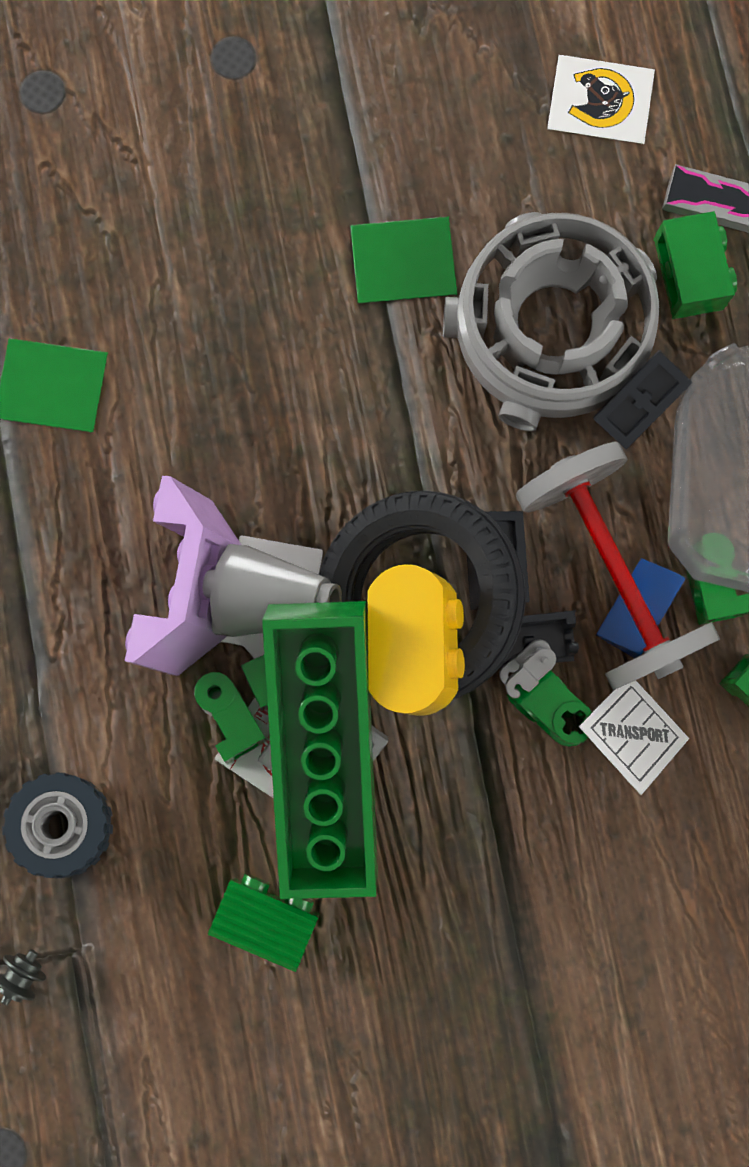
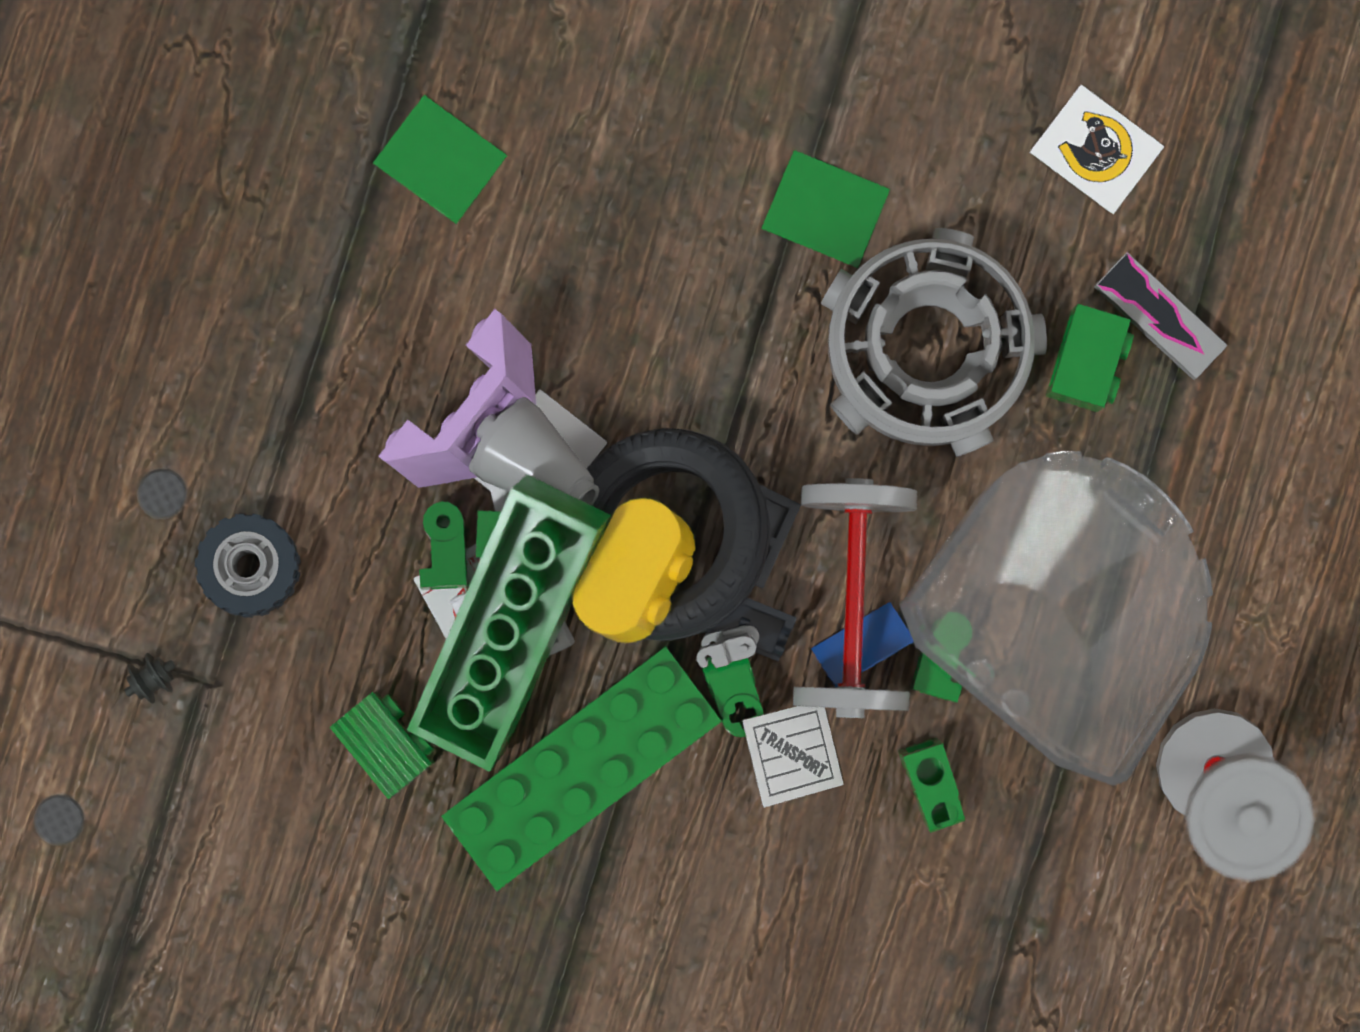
camera: 30 degrees right, 5 degrees up
(455, 850) = (581, 768): none -> green brick
(642, 399) = (964, 460): black hinge -> none

